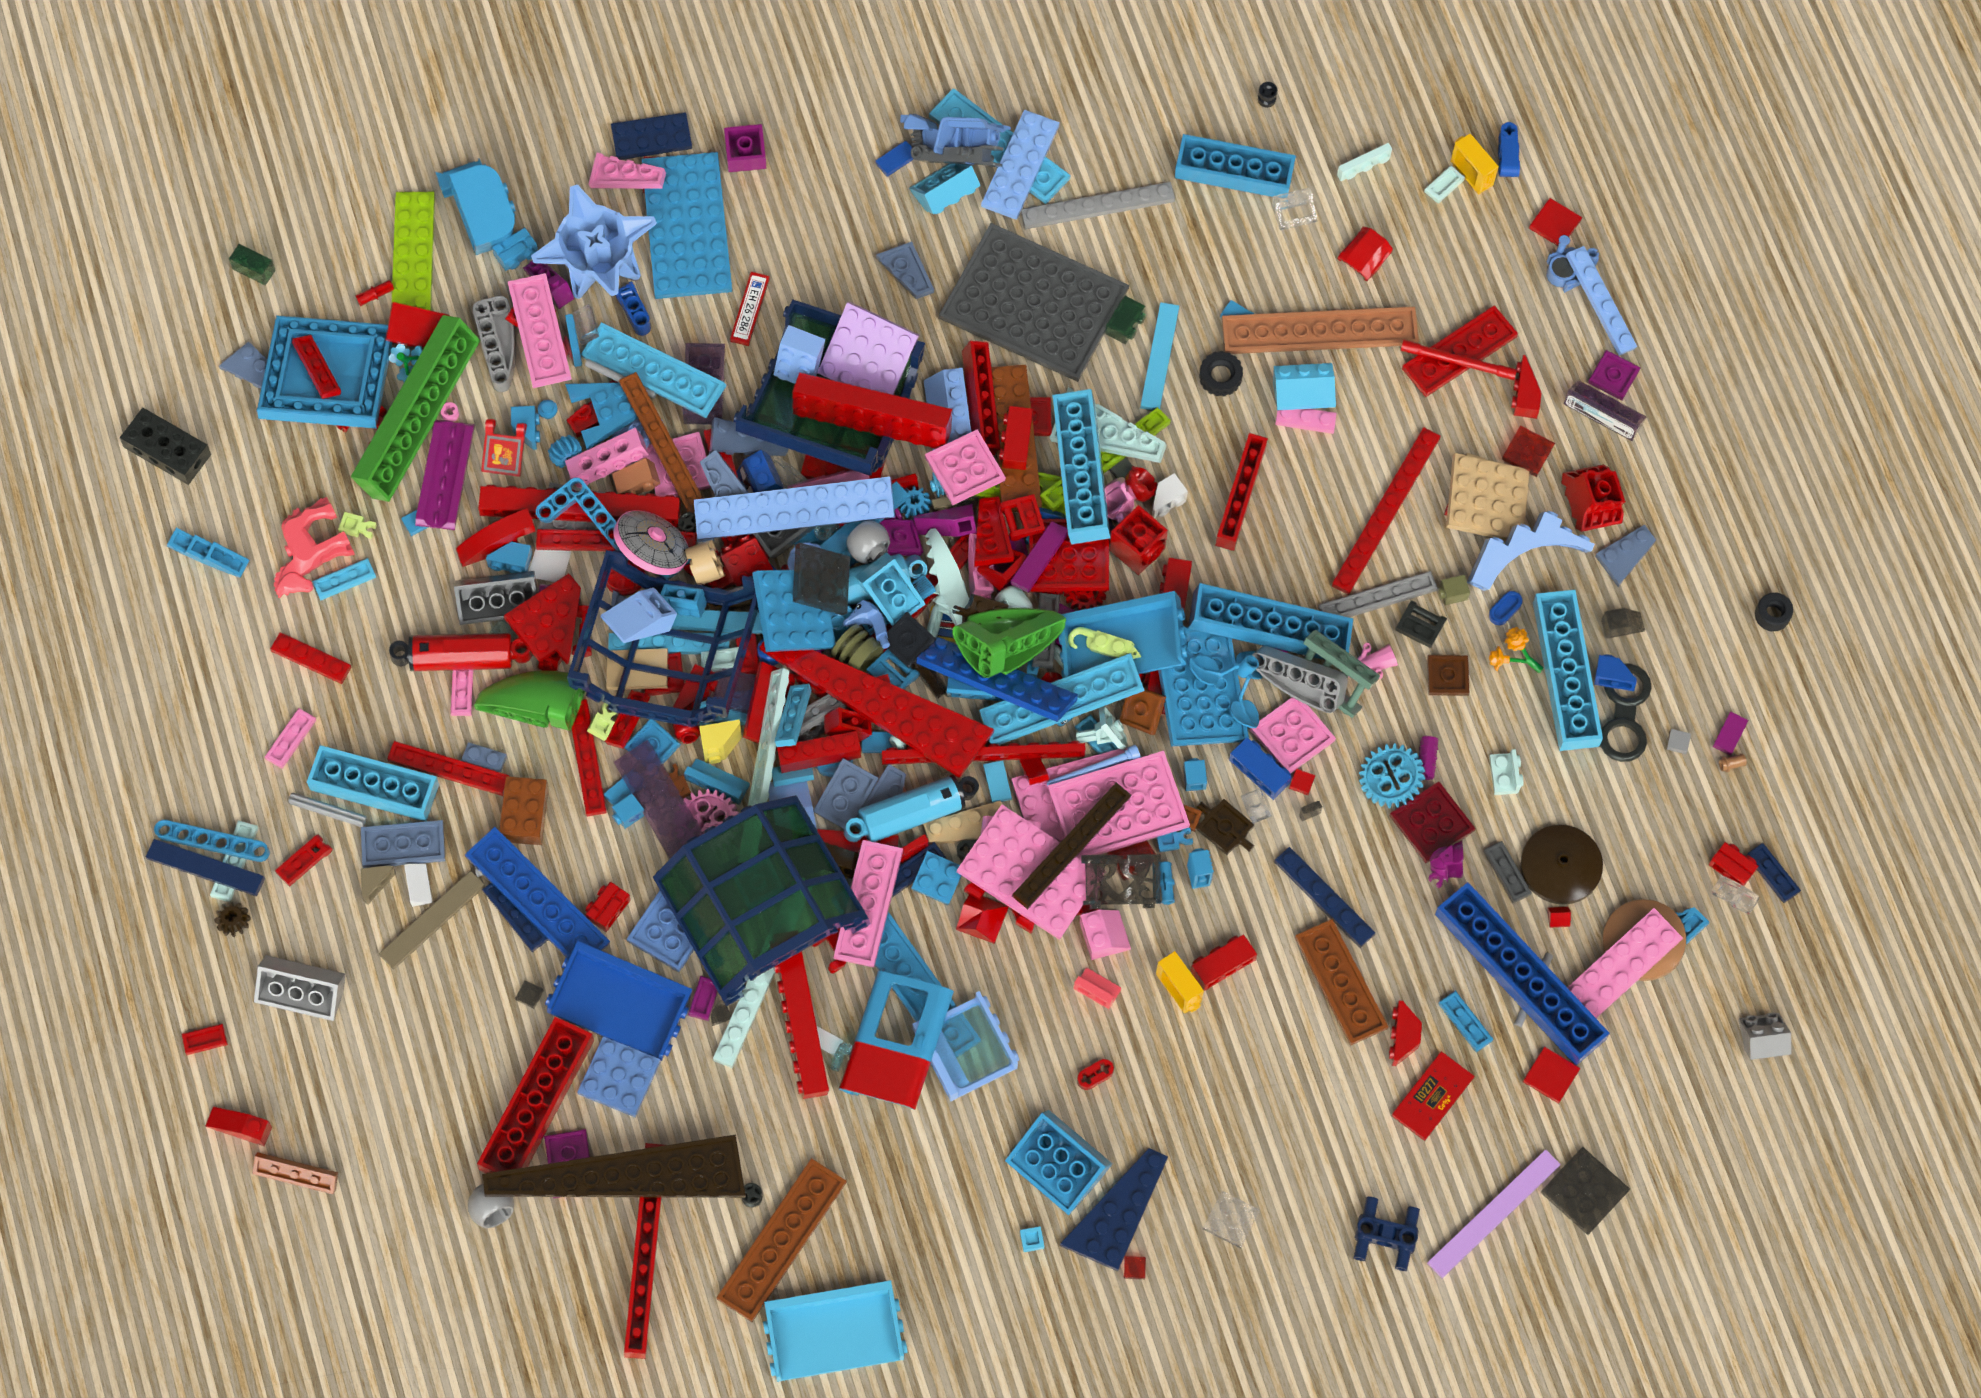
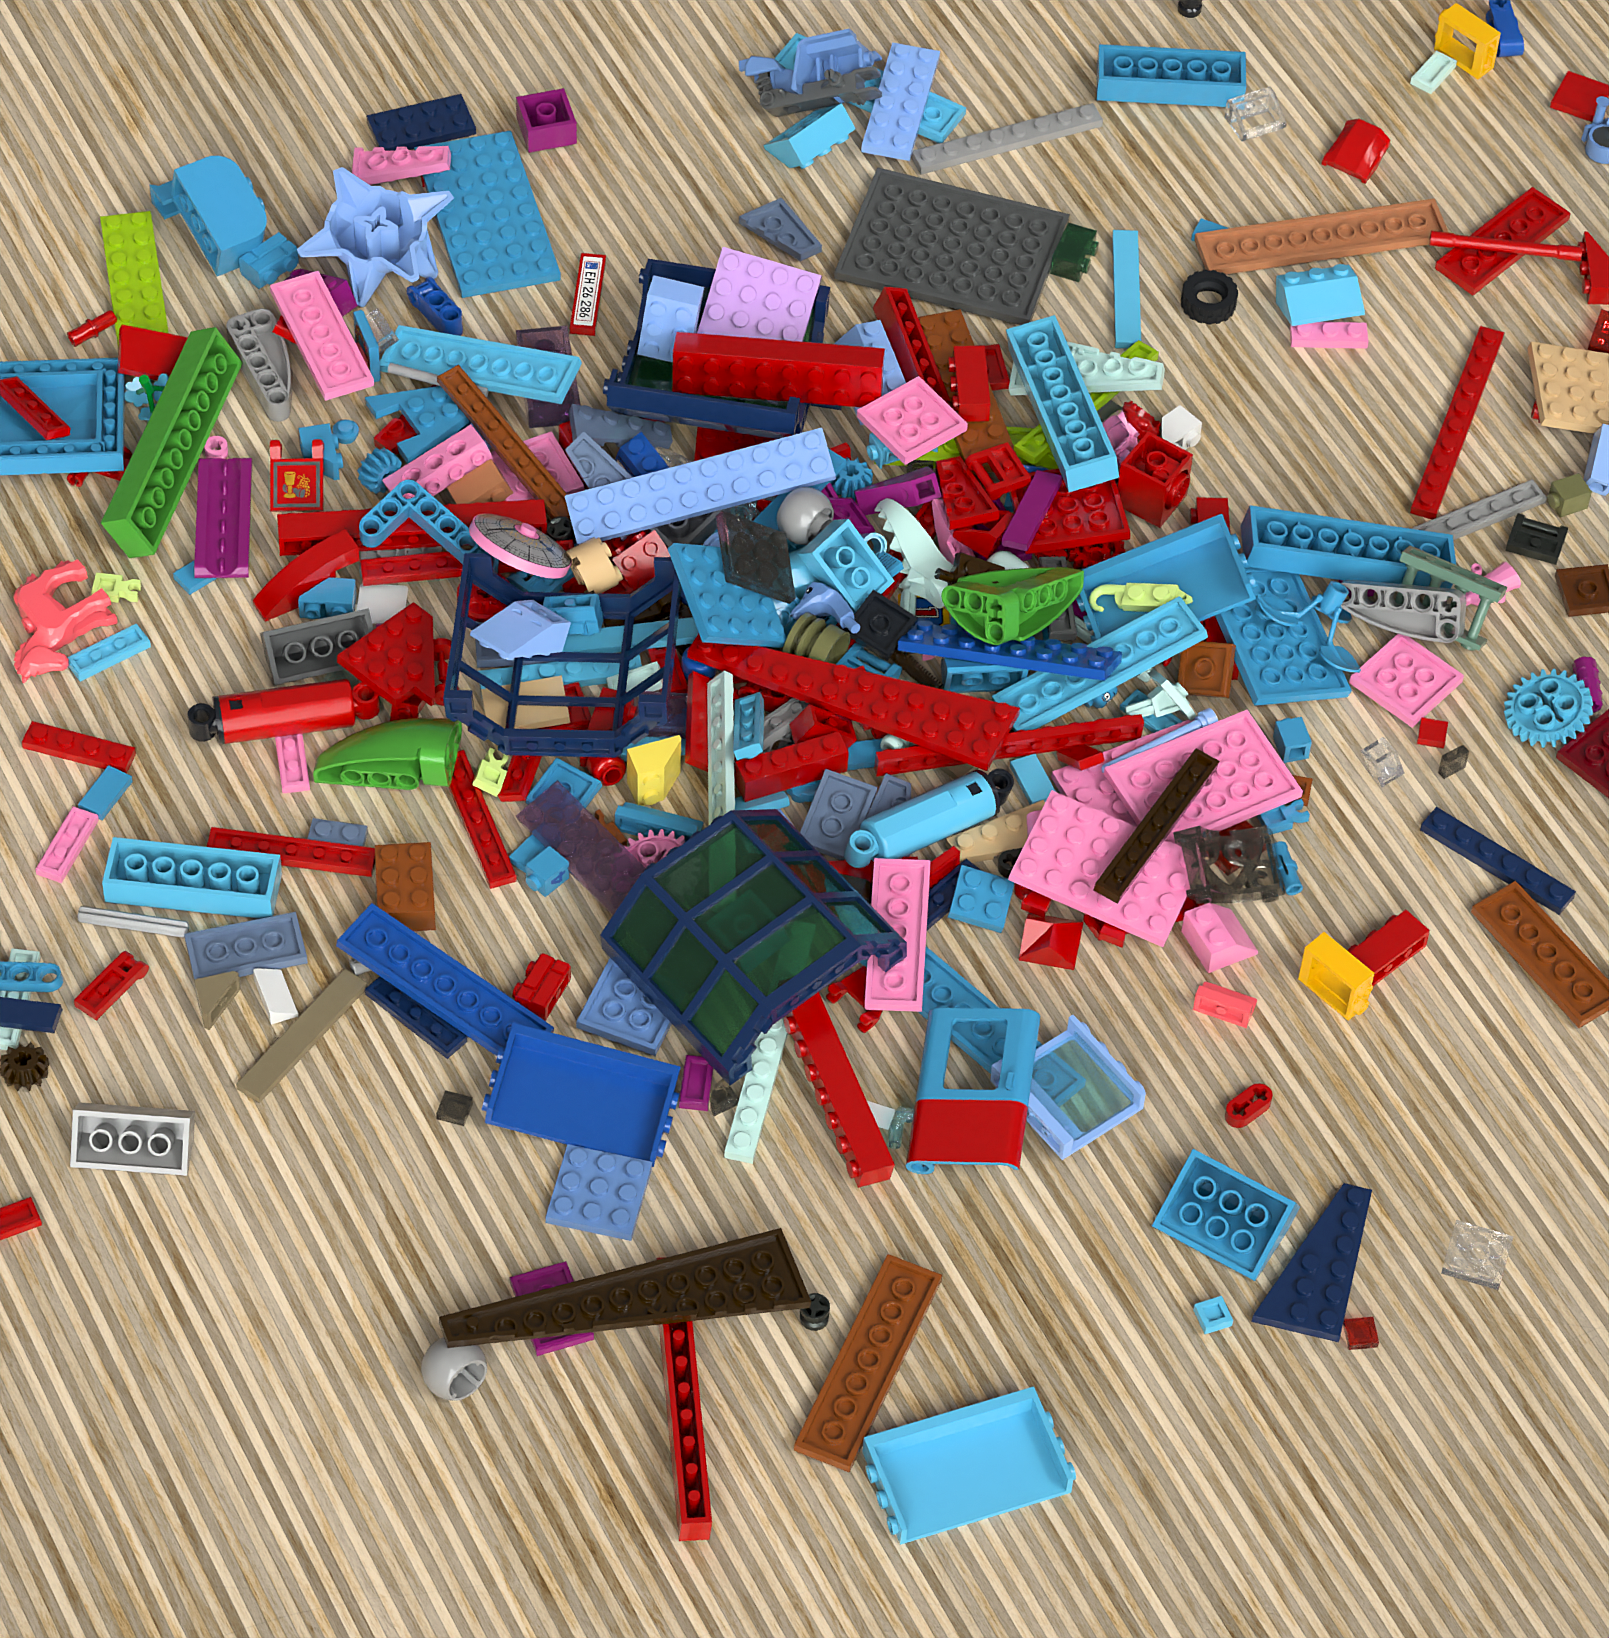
camera: 10 degrees left, 15 degrees down
(239, 1125) = (78, 1318): red slope -> none
(295, 1173) = (166, 1368): plate -> none
(324, 699) = (105, 792): none -> dark azure tile
(537, 1098) = (493, 1222): red brick -> none
(895, 159) = (740, 116): blue tile -> none
(941, 504) = (887, 472): dark tan plate -> none
(1200, 868) = (1328, 841): dark azure brick -> none
(1225, 826) = (1347, 794): dark brown plate -> none
(1241, 492) = (1270, 417): red brick -> none
(1260, 768) = (1374, 719): blue brick -> none
(1364, 162) = (1329, 57): light aqua plate -> none

